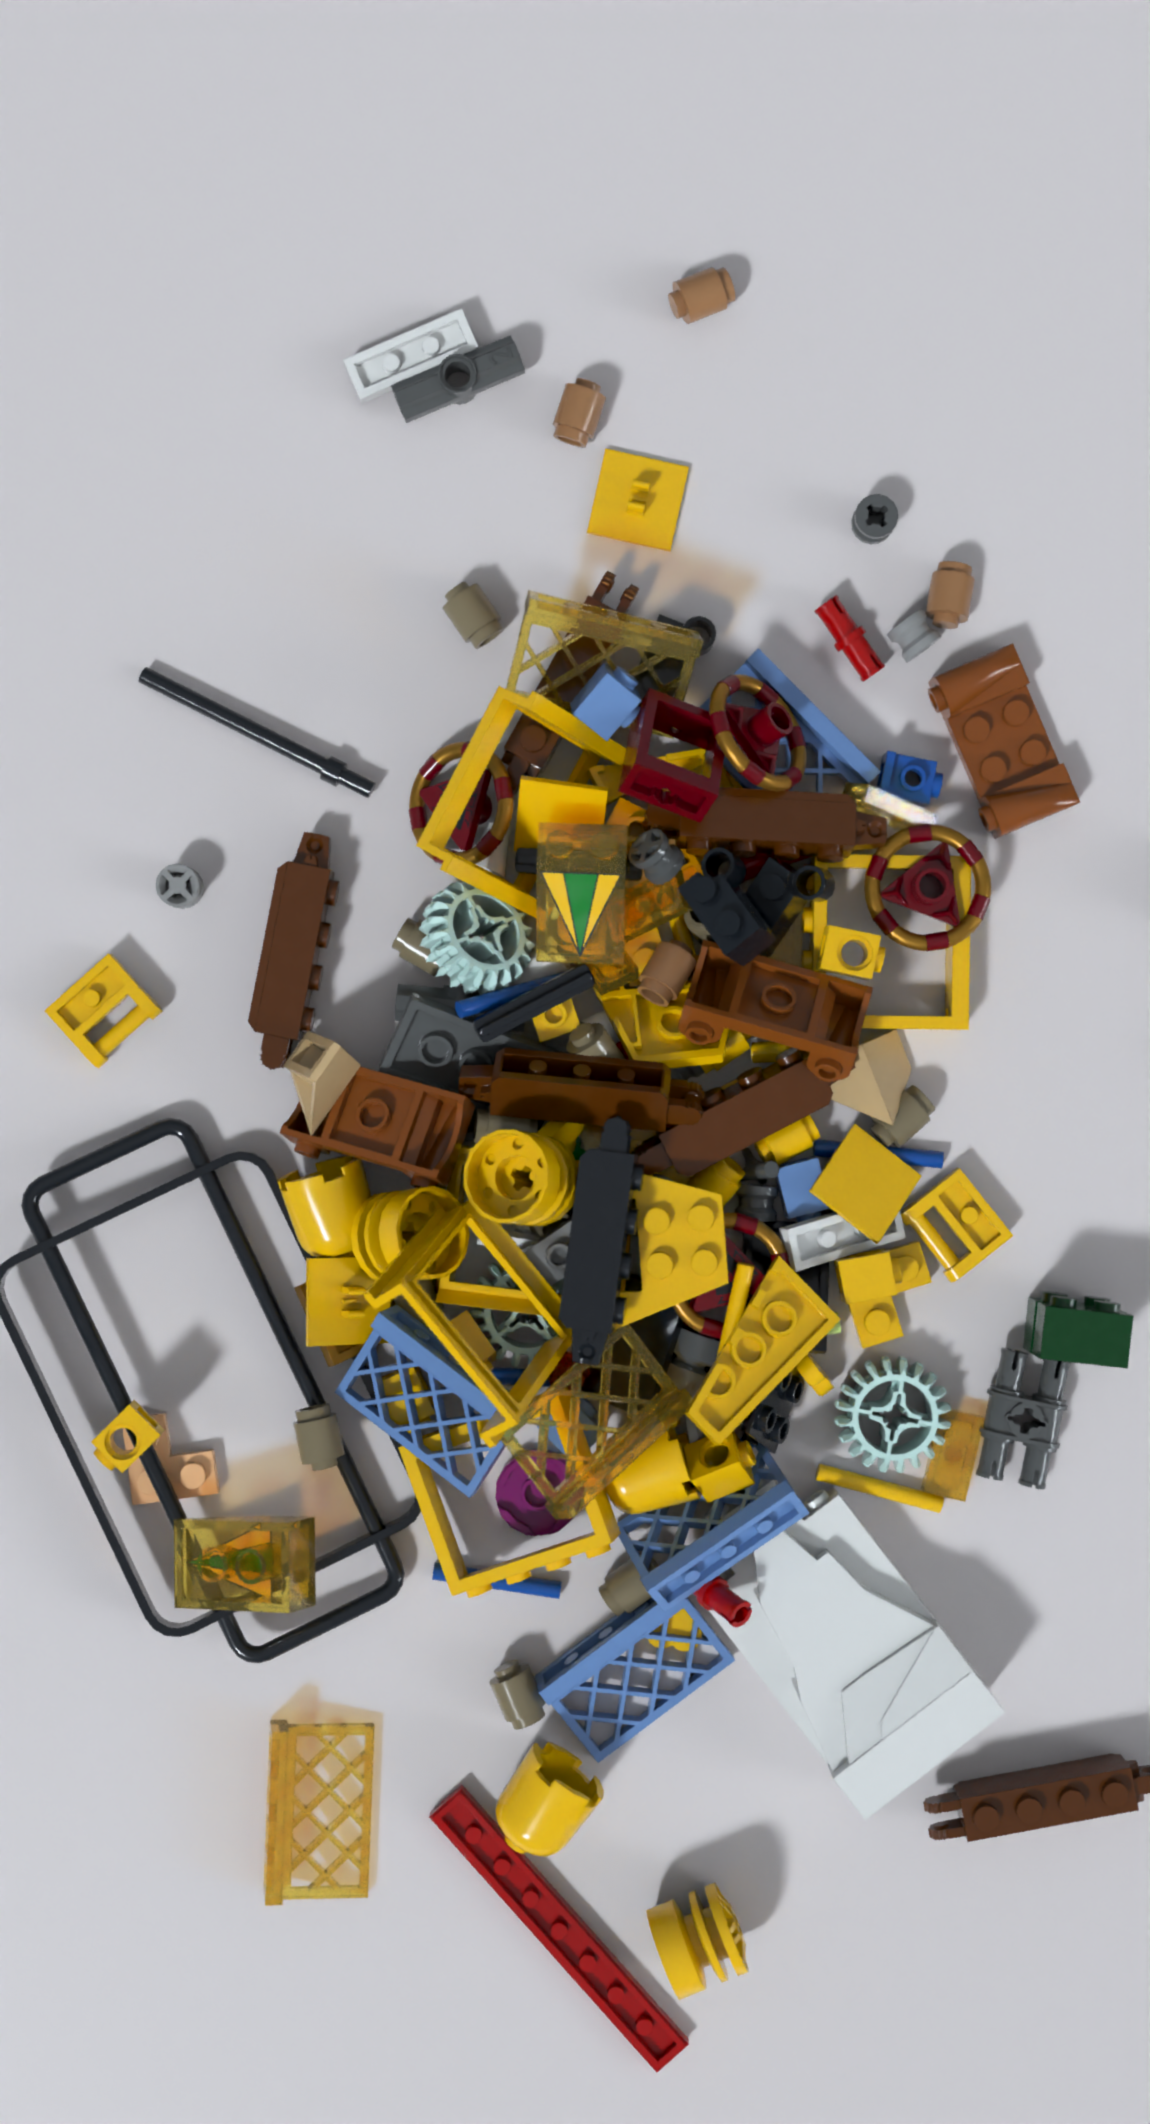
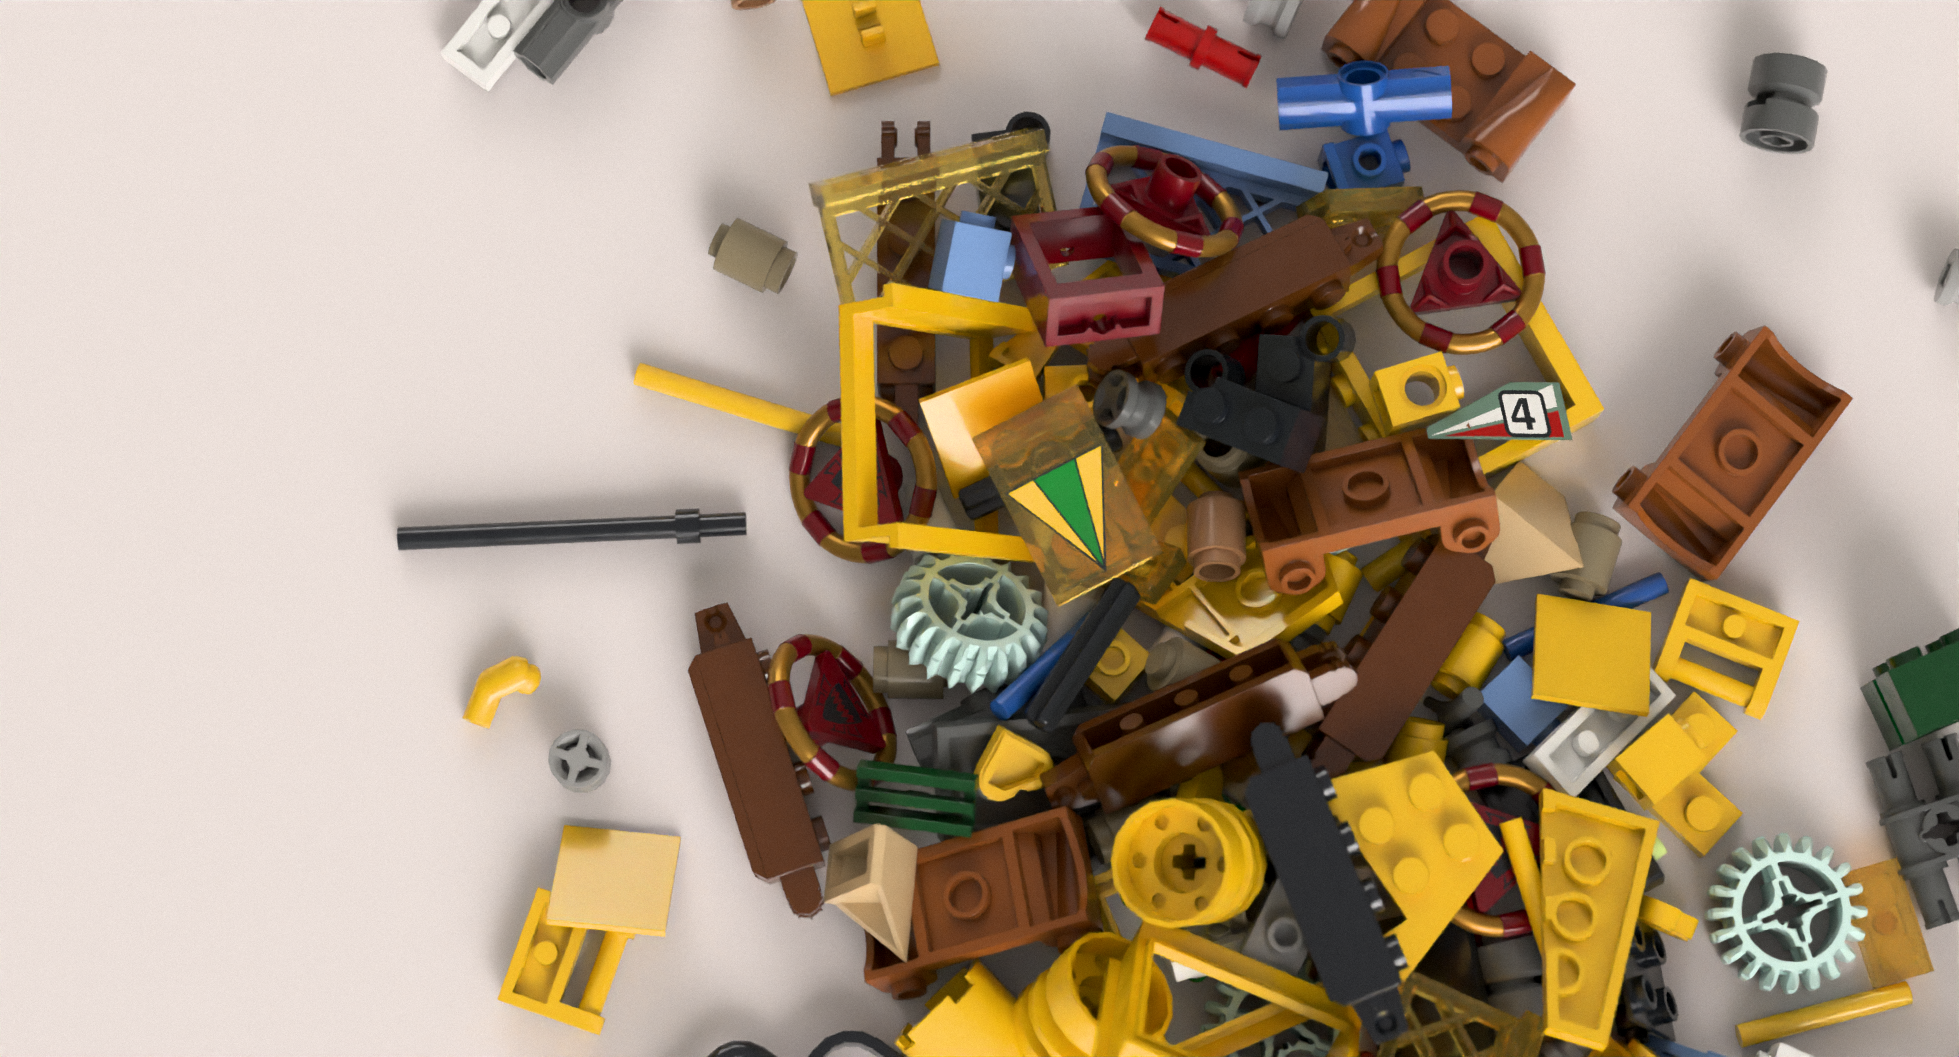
camera: 30 degrees left, 10 degrees down
(155, 805) = (498, 682): none -> yellow arm
(159, 976) = (613, 880): none -> yellow piece
(355, 947) = (830, 708): none -> piece
(369, 1040) = (913, 819): none -> dark green tile
(402, 699) = (729, 401): none -> yellow bar
(447, 1047) = (1010, 765): none -> yellow tile
(903, 999) = (1510, 413): none -> sticker
(933, 734) = (1364, 98): none -> blue piece
(1035, 1104) = (1731, 454): none -> dark orange piece

